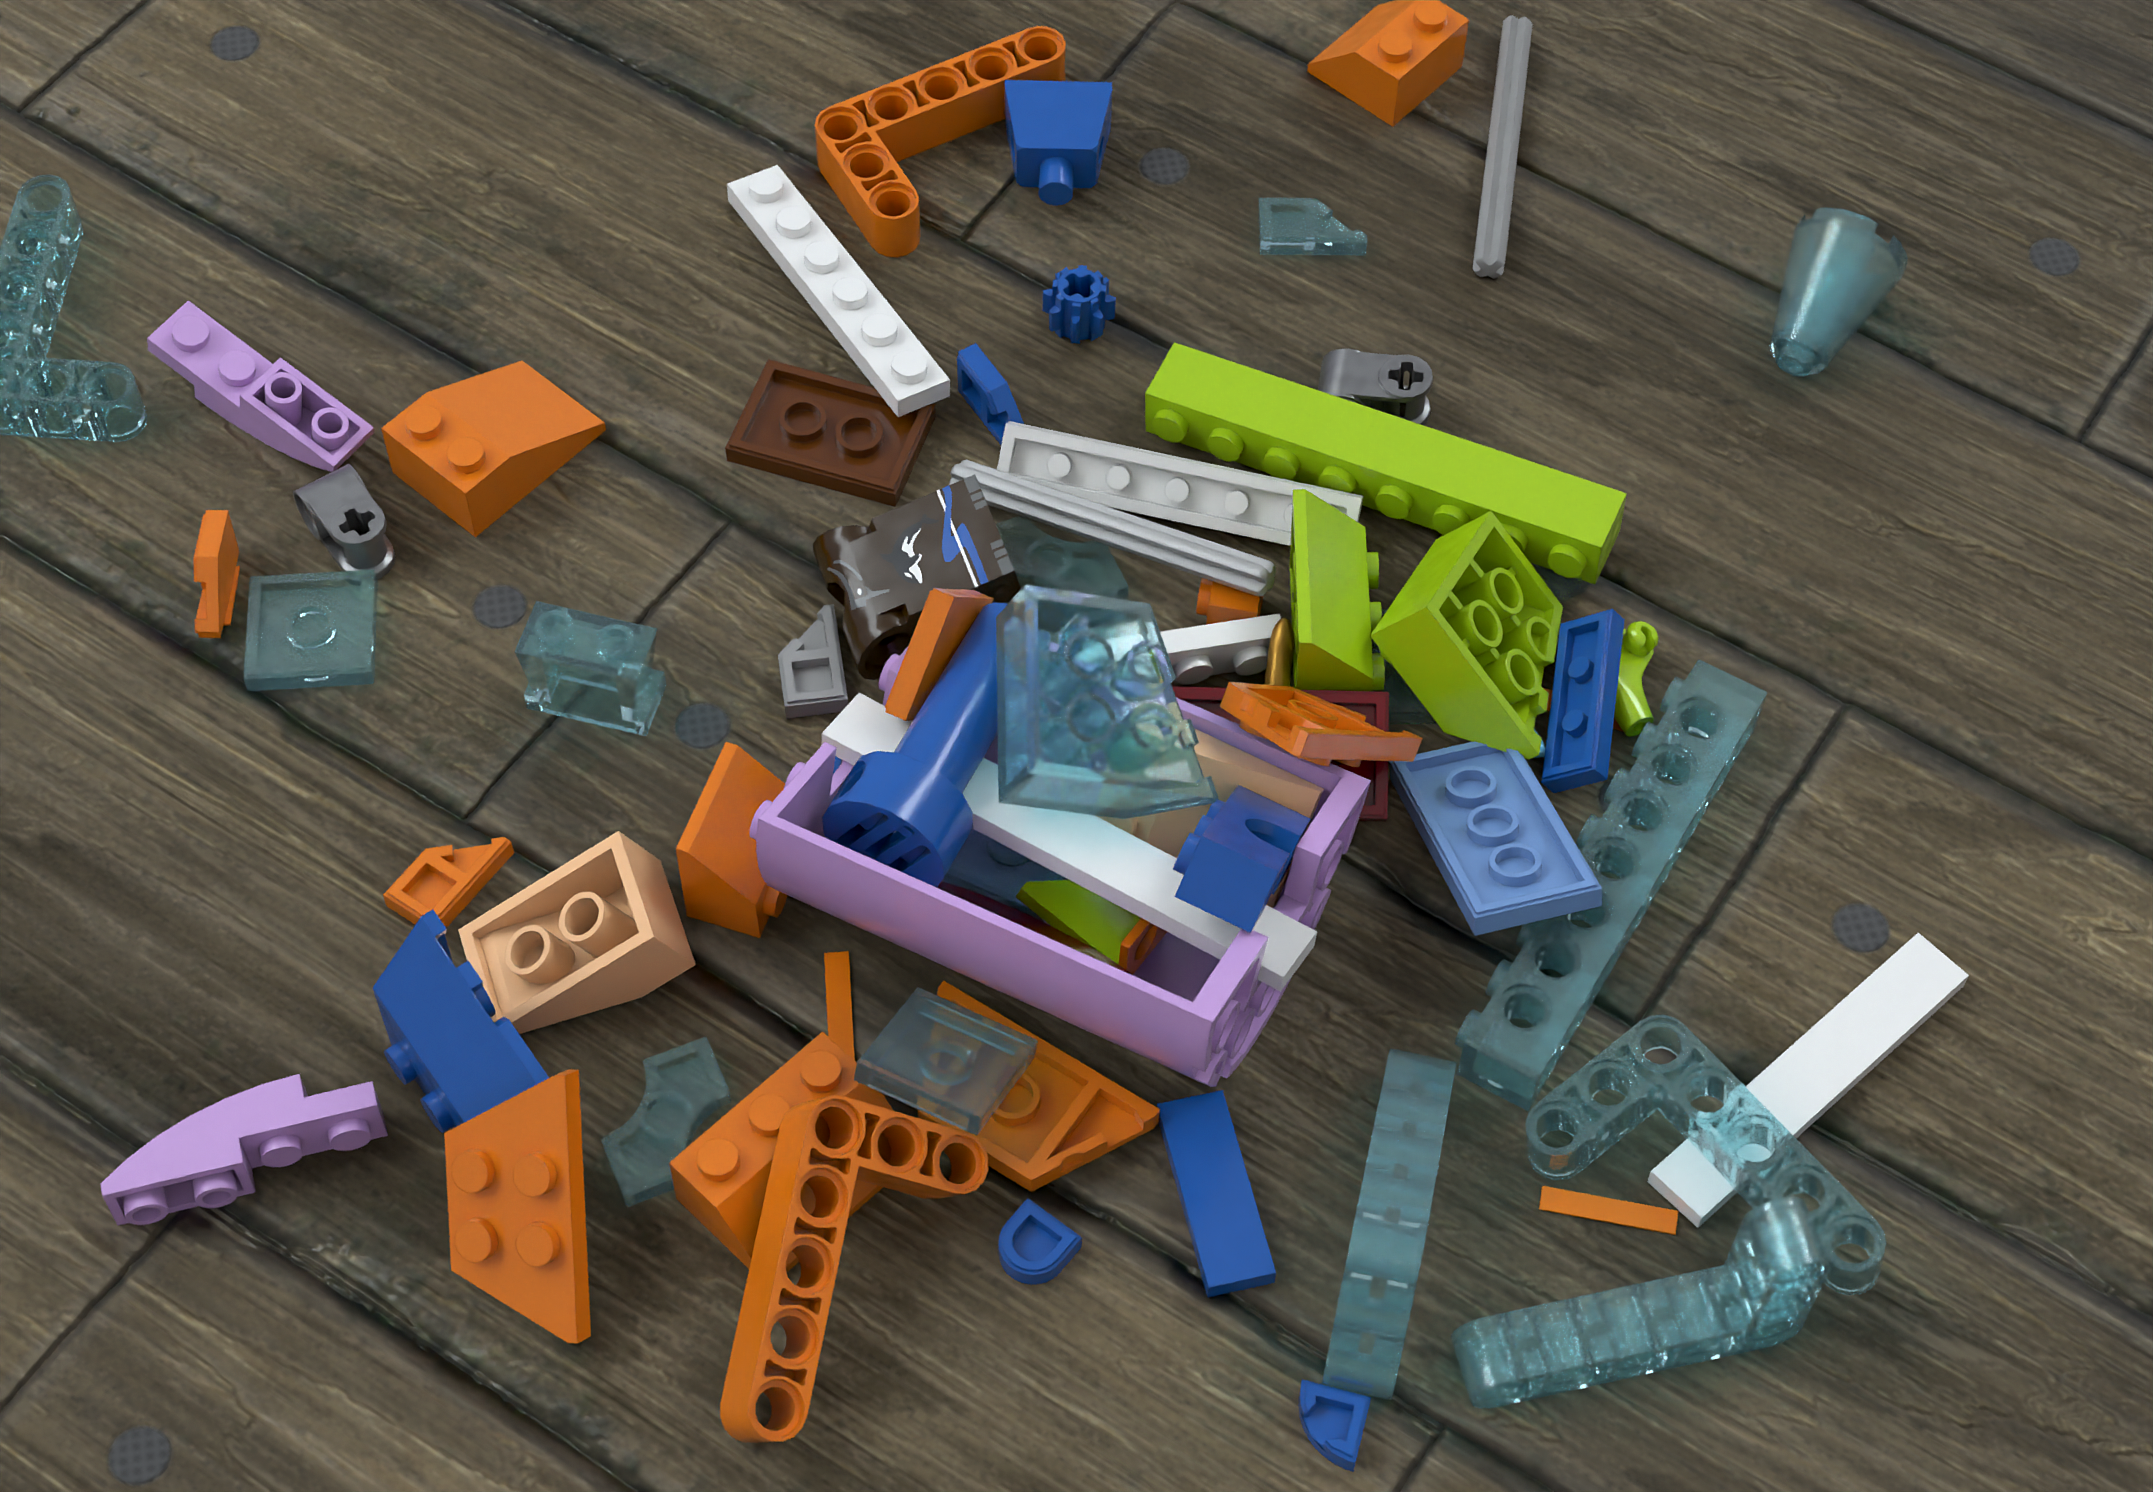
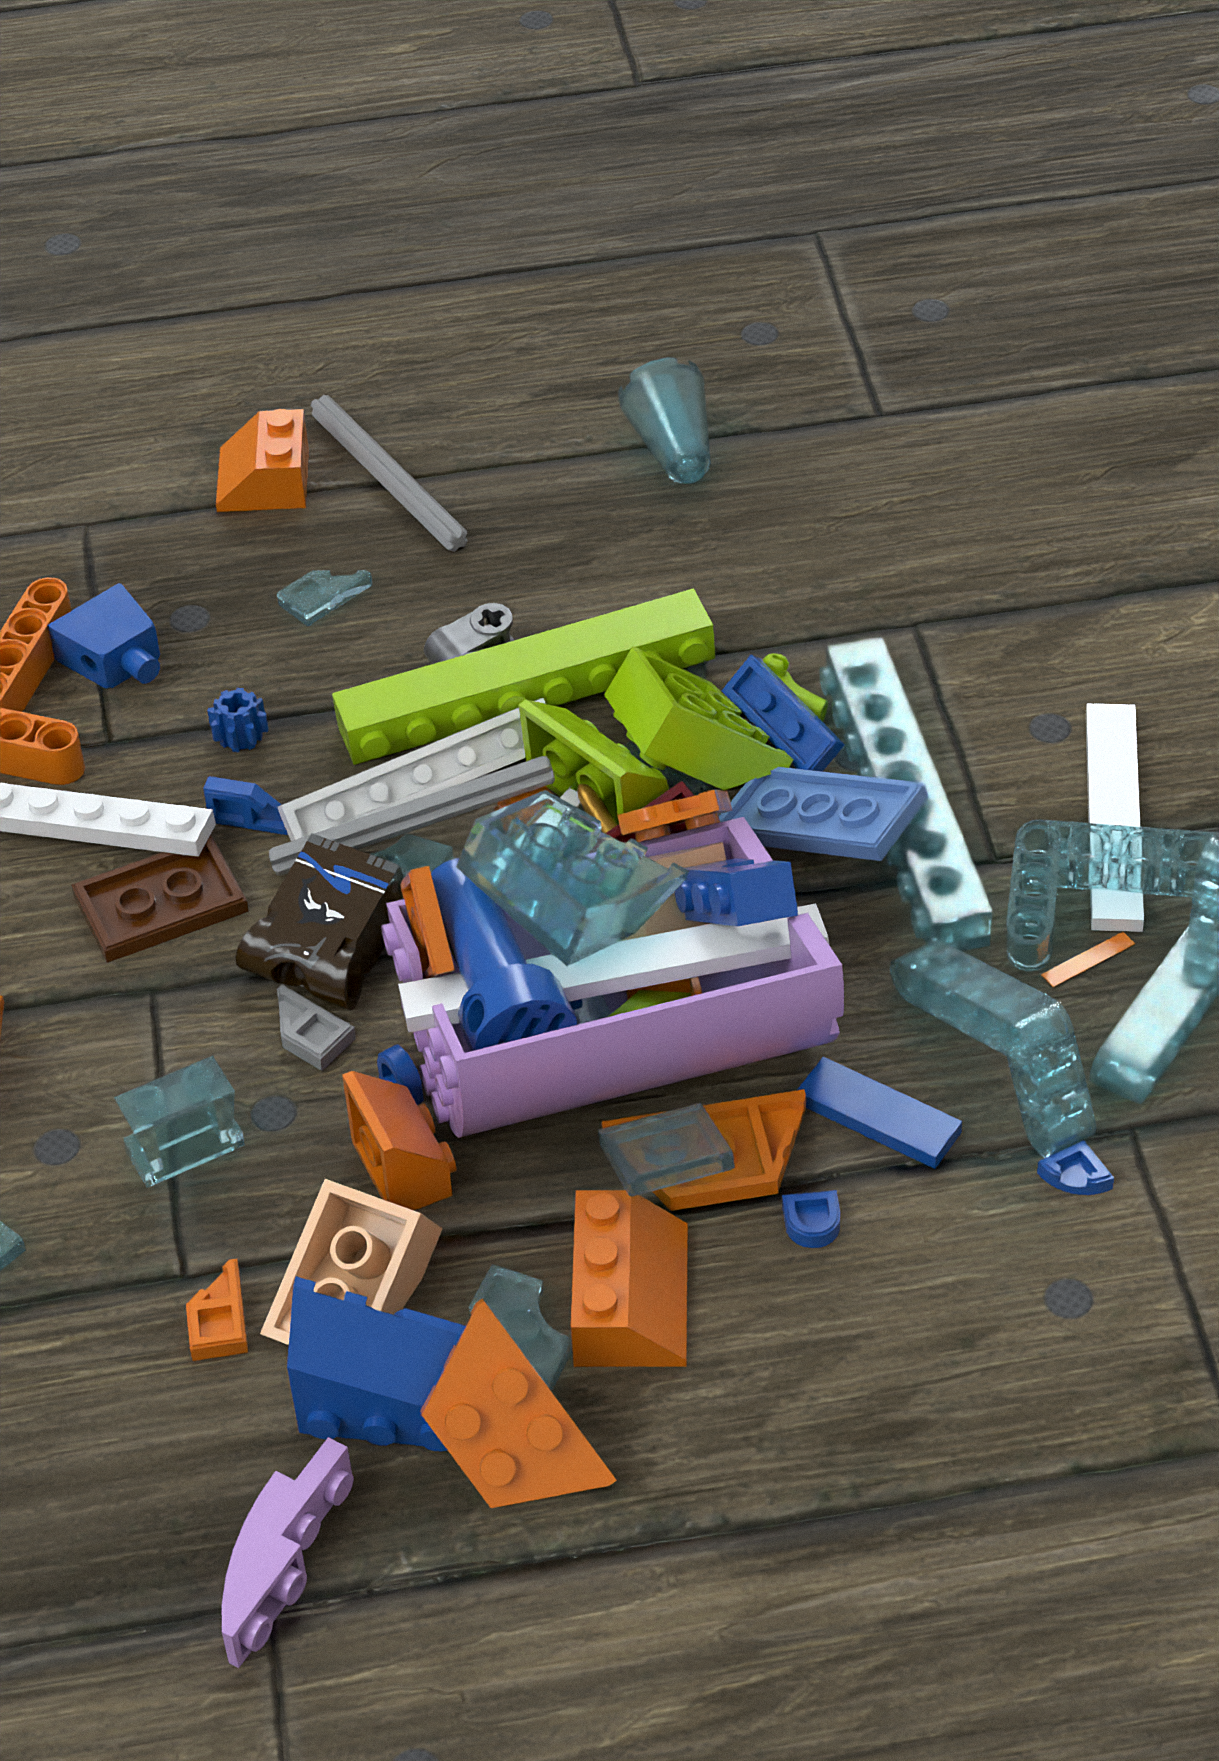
camera: 40 degrees left, 10 degrees down
(818, 1243) = (669, 1255): orange beam -> none
(839, 1000) = (541, 1189): orange piece -> none

